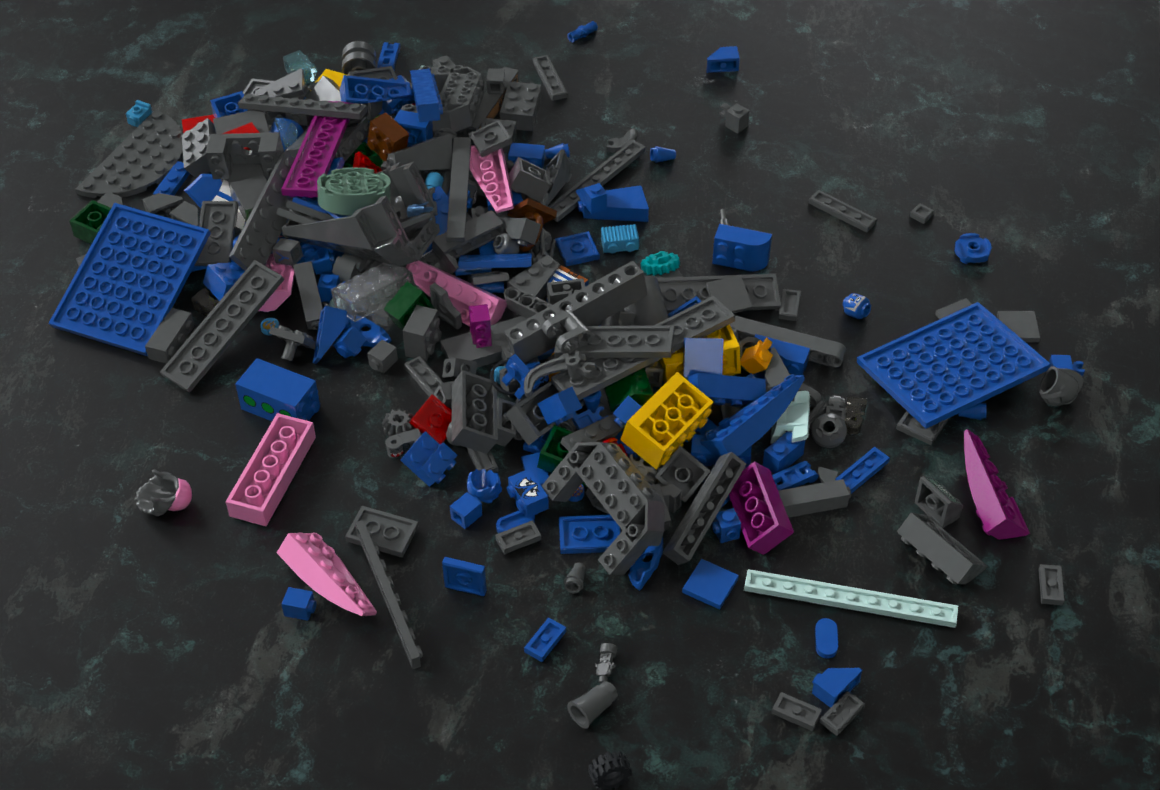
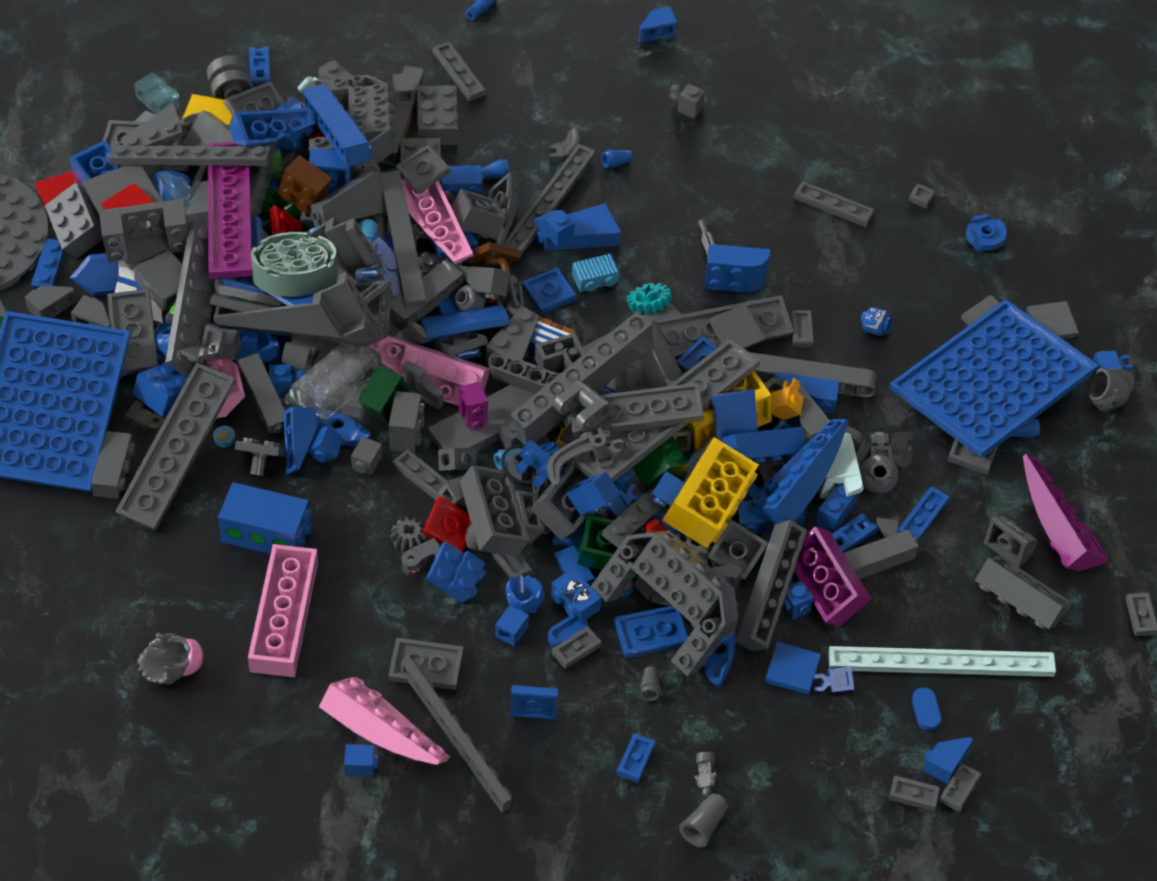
camera: 15 degrees left, 5 degrees up
(273, 250) = (211, 346): none -> dark grey bracket
(749, 599) = (837, 679): none -> plate

